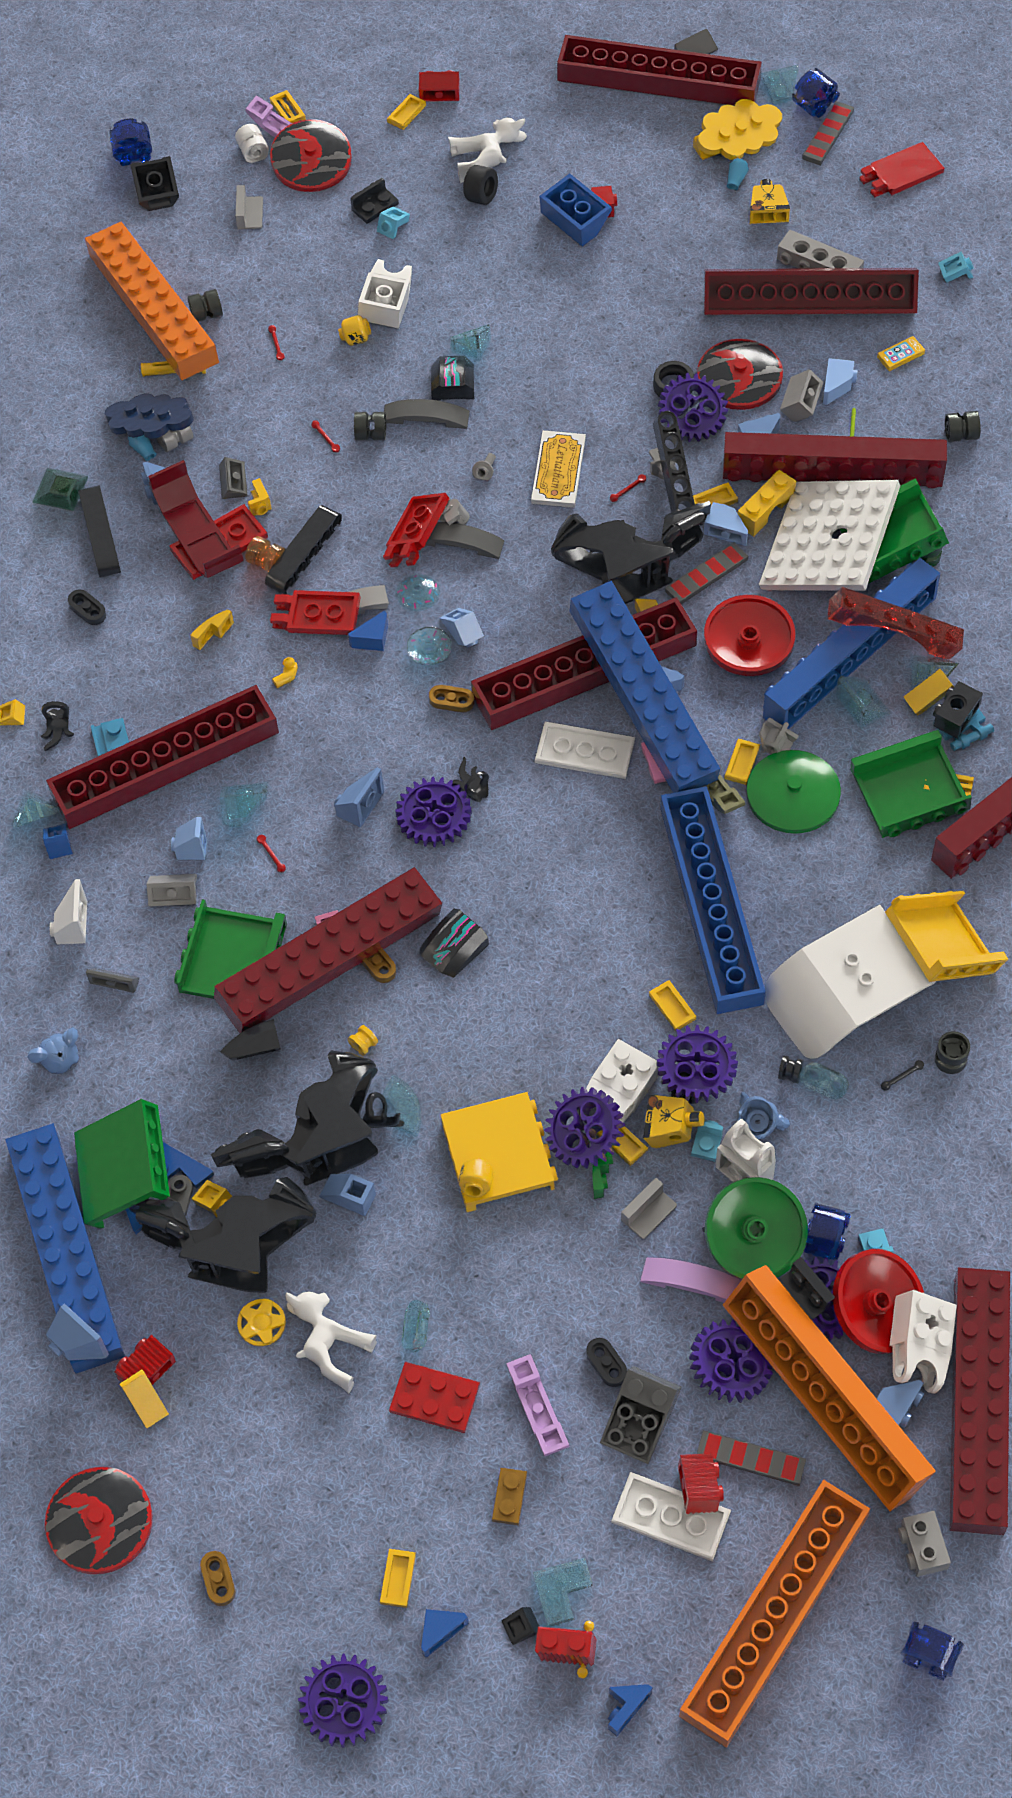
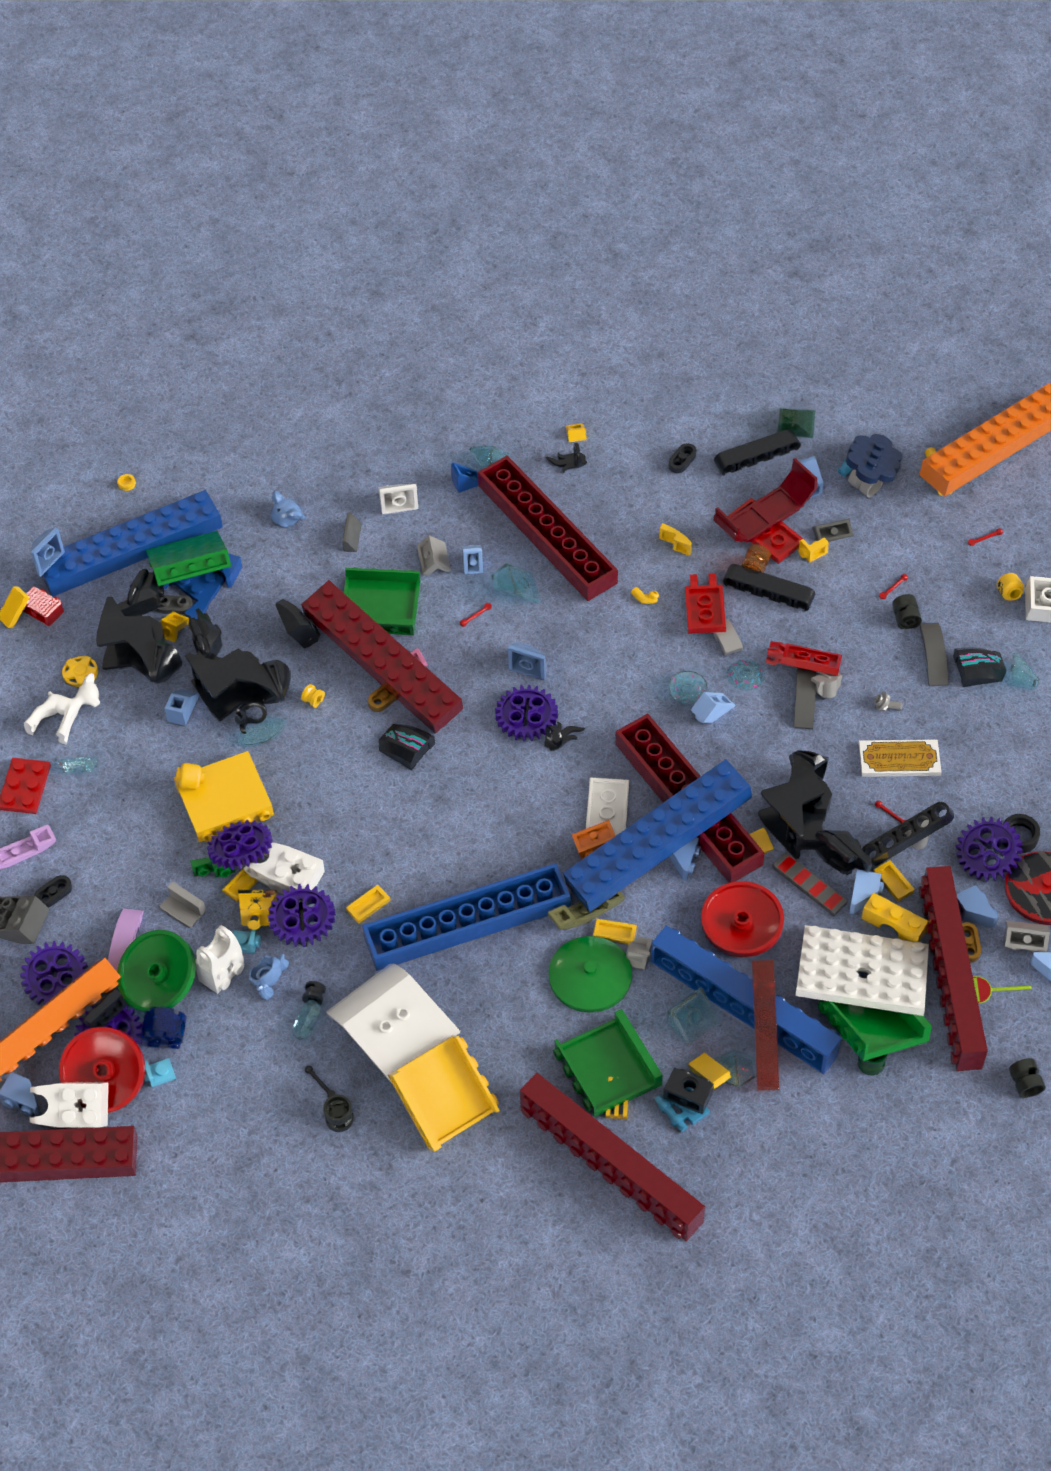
camera: 80 degrees right, 5 degrees down
(109, 735) = (564, 495): dark azure plate -> none
(205, 305) = (1006, 477): pearl dark grey wheel -> none
(370, 634) = (693, 646): blue slope -> none
(452, 697) = (639, 711): pearl gold plate -> none
(627, 760) = (593, 838): none -> orange bracket

